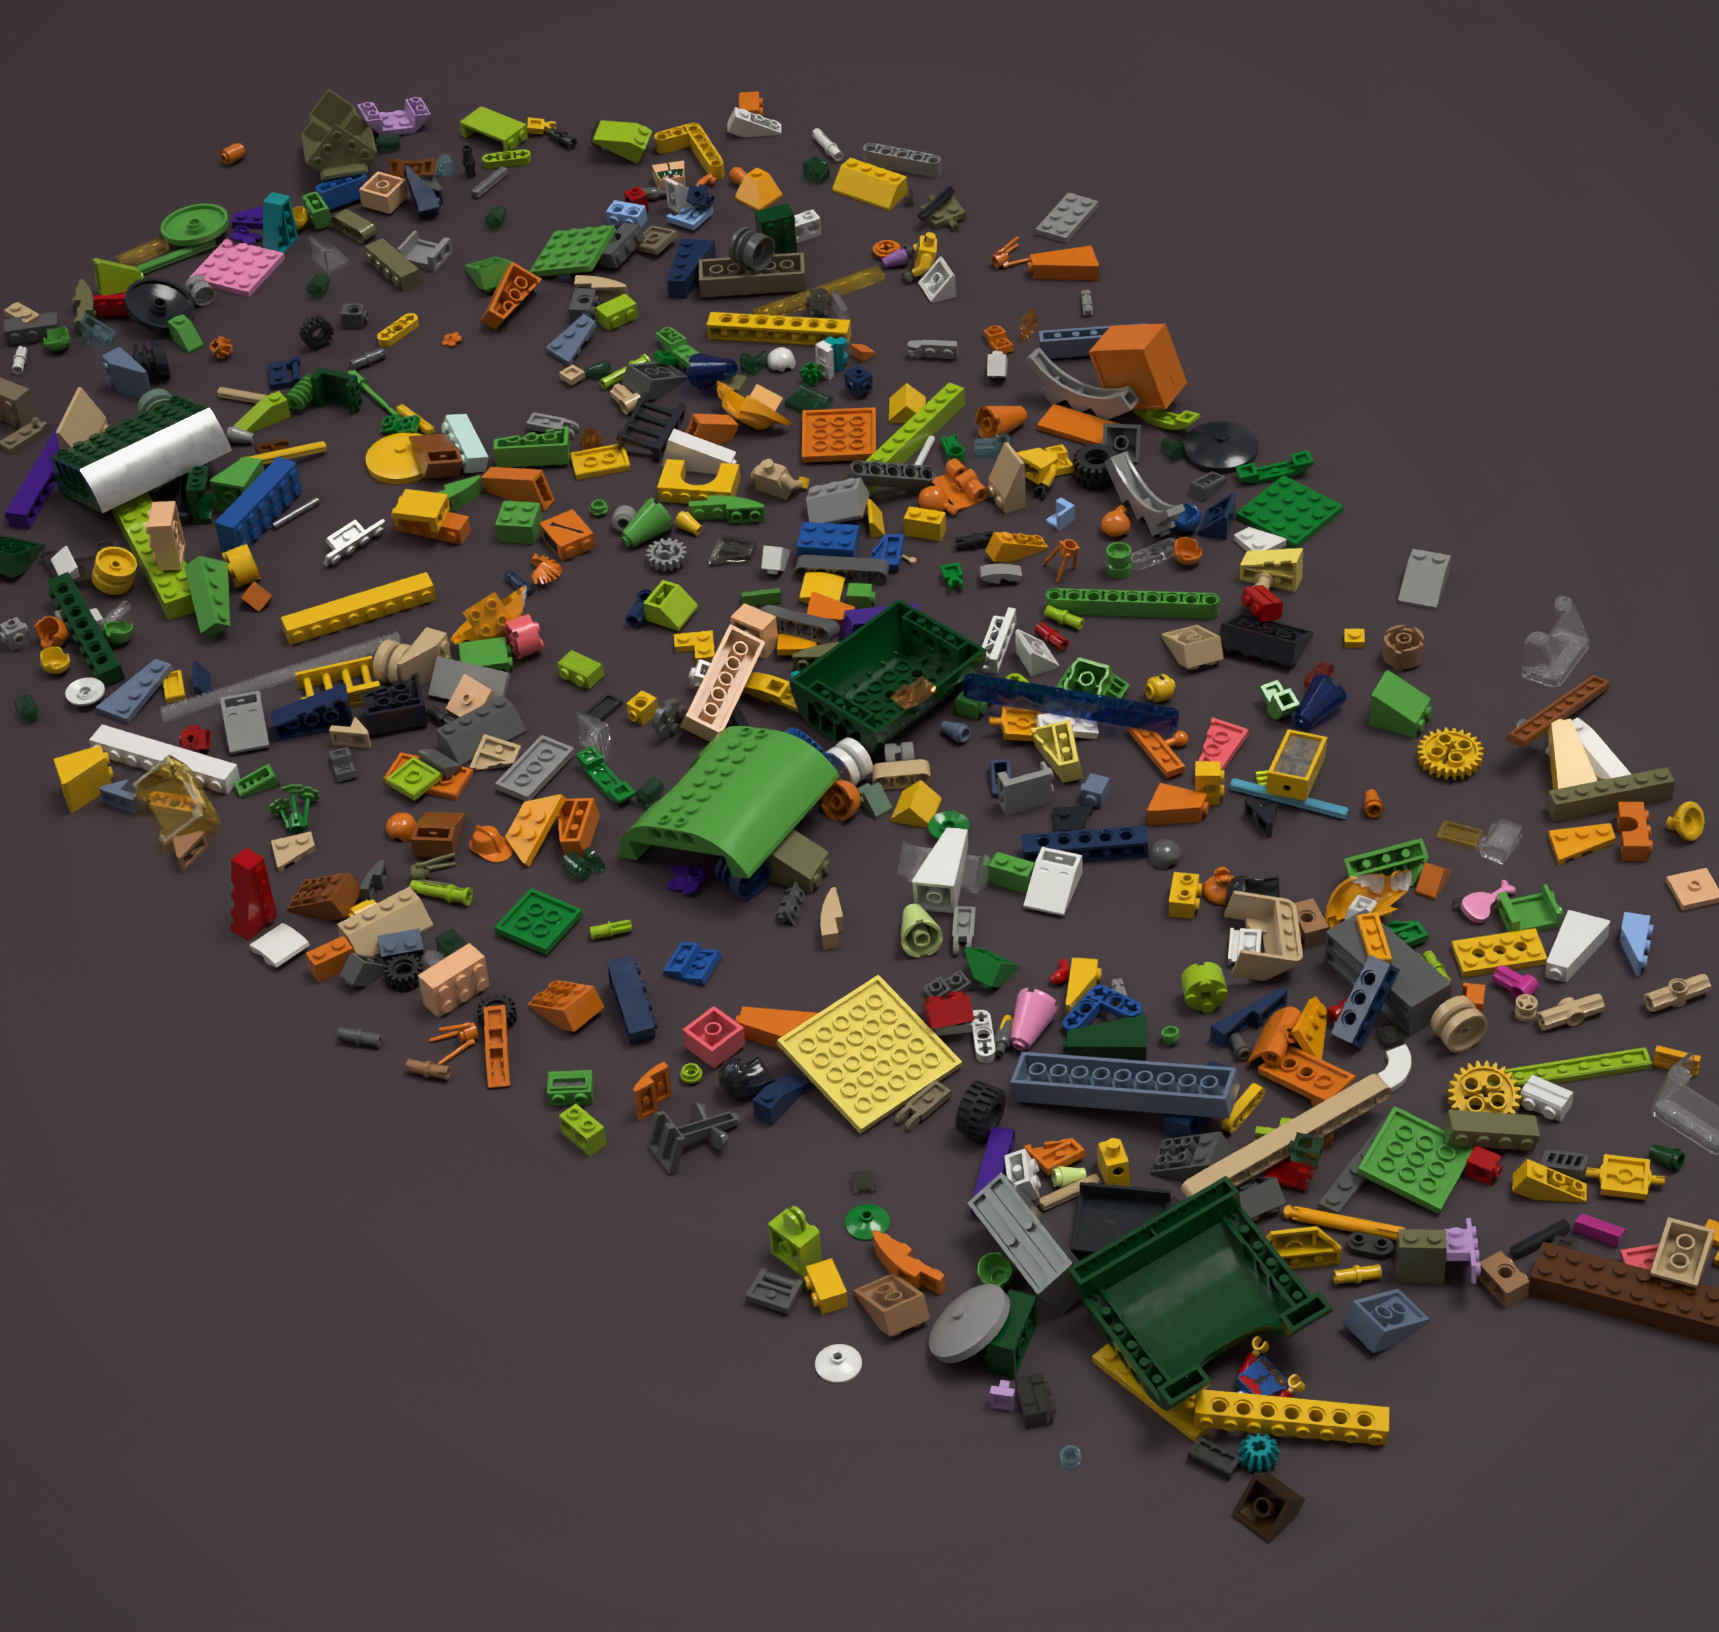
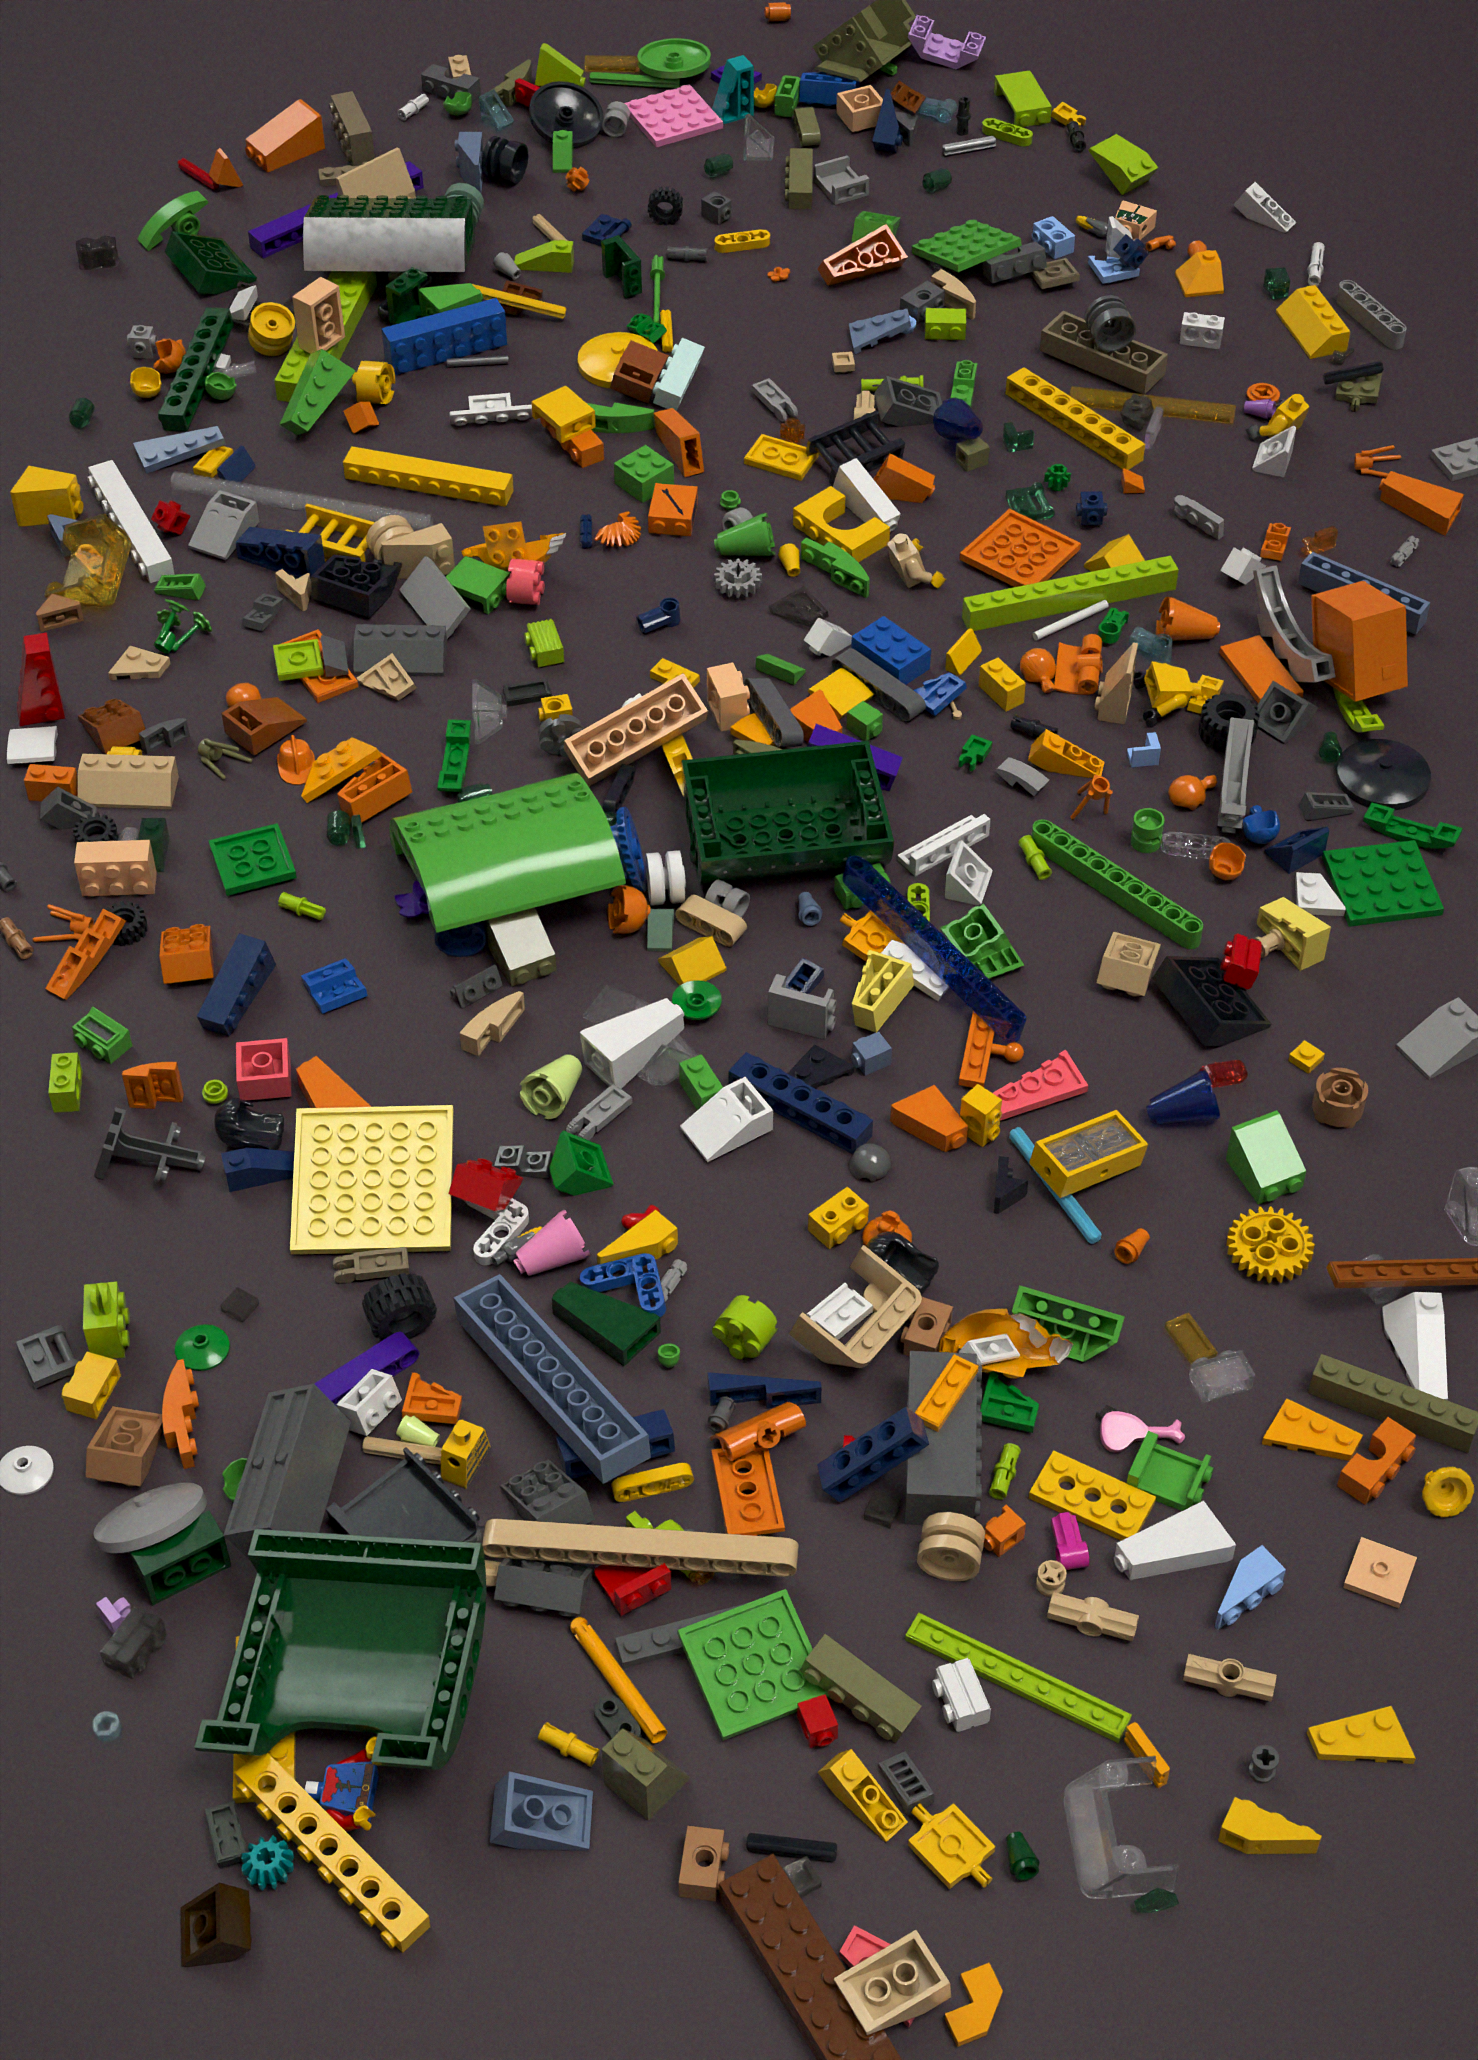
camera: 35 degrees right, 5 degrees up
(85, 691) = (138, 424): white dish -> none
(242, 234) = (707, 89): dark purple plate -> none
(300, 394) = (589, 256): bright green piece -> none
(388, 142) = (919, 65): clear green brick -> none
(400, 943) = (116, 805): sand blue brick -> none
(437, 715) = (384, 613): pearl dark grey pin -> none
(449, 893) = (212, 785): lime pin -> none
(469, 696) = (422, 610): light nougat plate -> none
(533, 449) = (730, 413): bright green wedge -> none
(535, 768) = (407, 713): light grey plate -> none
(599, 369) = (871, 369): clear green cone -> none
(636, 196) = (1077, 224): red brick -> none
(665, 358) = (941, 389): green tile -> none
(669, 606) = (683, 628): lime slope -> none
(686, 265) = (1035, 318): dark blue wedge -> none
(691, 136) = (1183, 189): yellow beam -> none
(751, 102) = (1282, 188): orange brick -> none
(754, 410) = (959, 482): light orange animal -> none
(778, 224) = (1160, 320): dark green brick -> none
(780, 359) = (1046, 448): white hair -> none
(831, 355) = (1088, 467): hips -> none
(837, 501) = (938, 615): light grey slope -> none
(891, 474) = (1023, 615): dark grey beam -> none
(915, 694) = (769, 845): clear orange slope -> none
(1051, 636) = (1002, 869): red pin -> none
(1160, 688) = (1046, 987): yellow head -> none
(1279, 701) = (1149, 1072): bright green brick -> none
(1305, 1247) = (530, 1670): yellow wedge -> none
(1306, 1149) = (637, 1573): clear green brick -> none
(1311, 1028) = (803, 1446): light orange wing -> none
(1398, 1067) = (852, 1550): white tile -> none
(1432, 880) = (1106, 1369): orange slope -> none
(1463, 1246) = (684, 1797): lavender bracket -> none
(1480, 1077) = (912, 1621): yellow gear -> none
(1567, 756) = (1381, 1332): slope -> none
(1599, 1230) = (864, 1884): dark pink slope -> none

